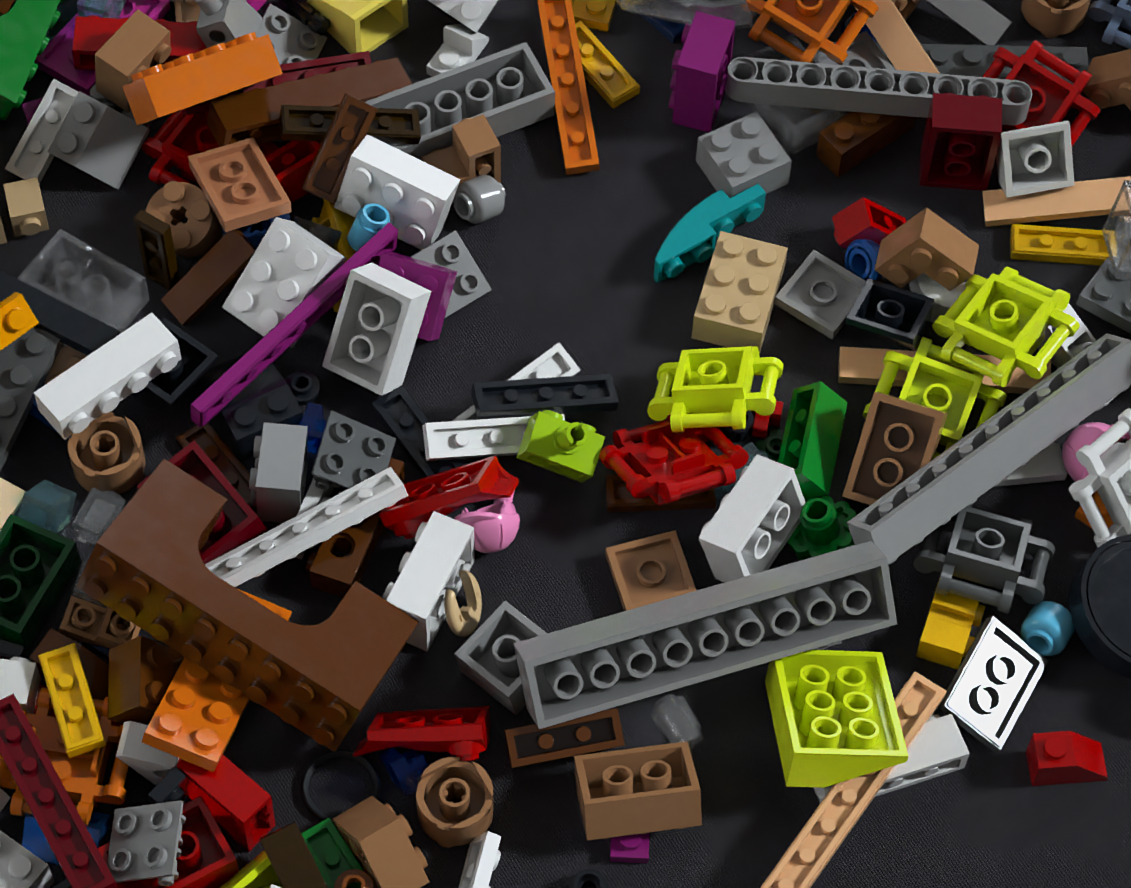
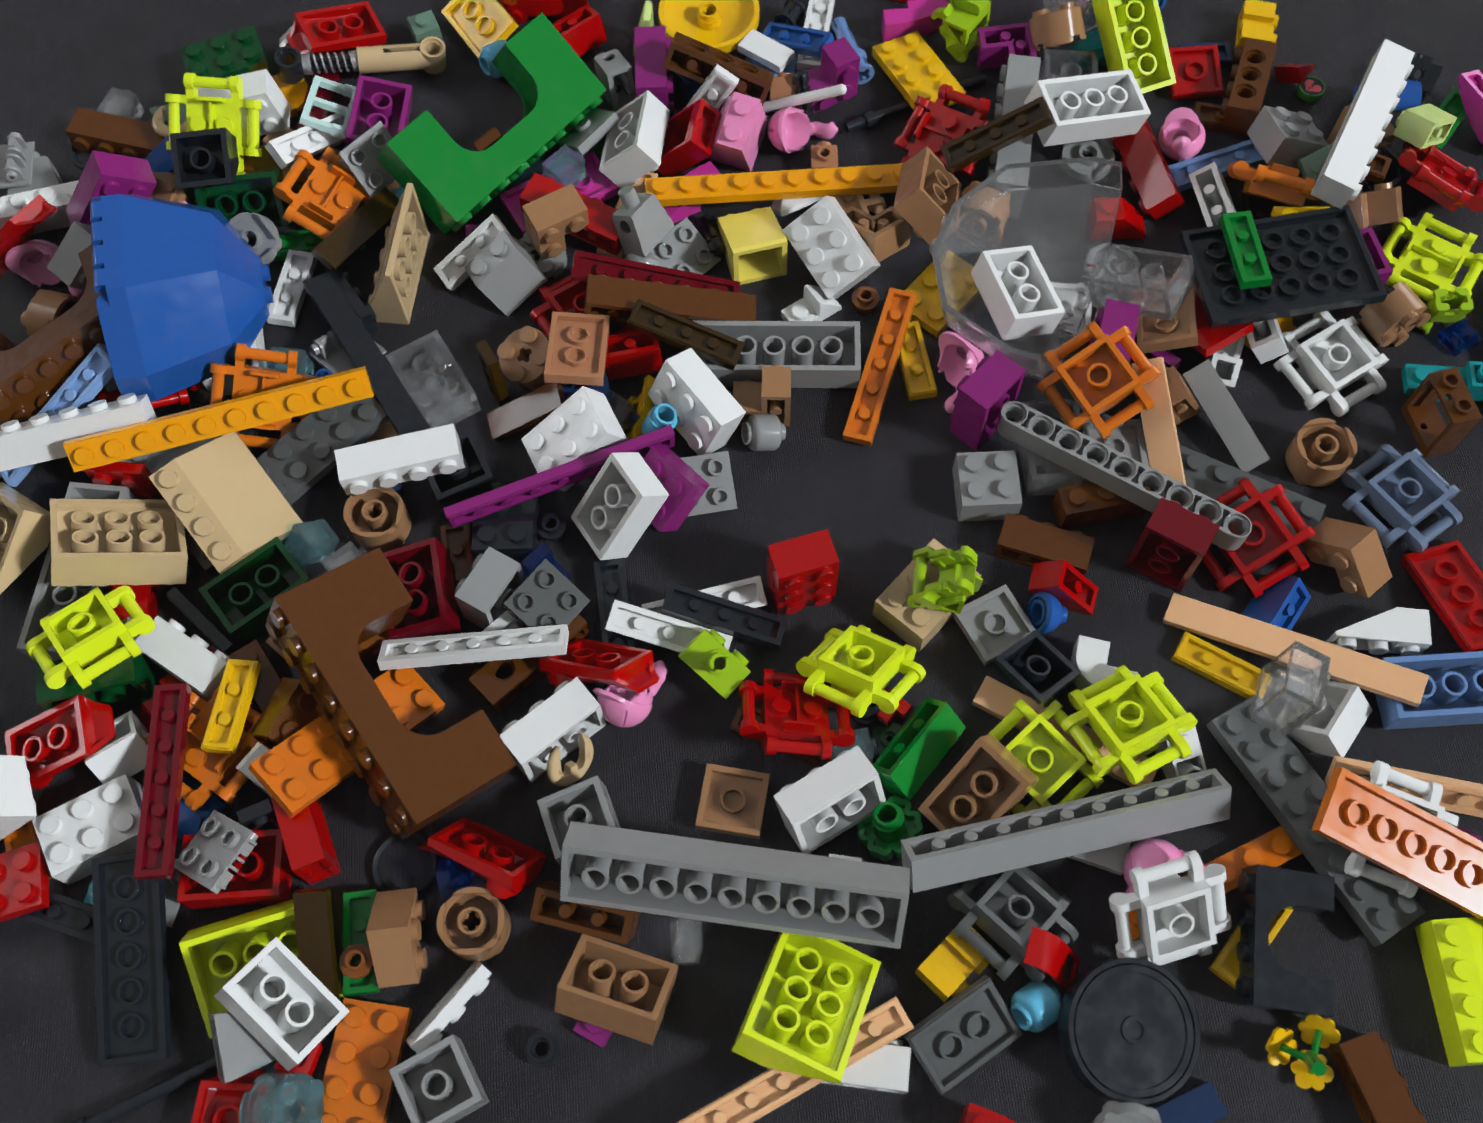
camera: 30 degrees right, 5 degrees up
(26, 207) = (431, 303): tan brick -> none
(201, 77) = (585, 255): orange brick -> none
(341, 140) = (672, 341): reddish brown tile -> none
(508, 26) = (865, 305): none -> dark orange plate
(606, 317) = (802, 572): none -> red brick
(652, 47) = (956, 360): none -> bright pink piece
(696, 232) = (922, 526): teal slope -> none
(769, 258) = (955, 580): none -> lime piece
(815, 198) = (1034, 542): none -> reddish brown brick
(928, 247) = (1096, 627): medium nougat brick -> none
(1035, 159) = (1228, 588): white slope -> none
(1036, 566) = (1050, 955): none -> red piece
(1093, 155) = (1280, 603): none -> blue panel

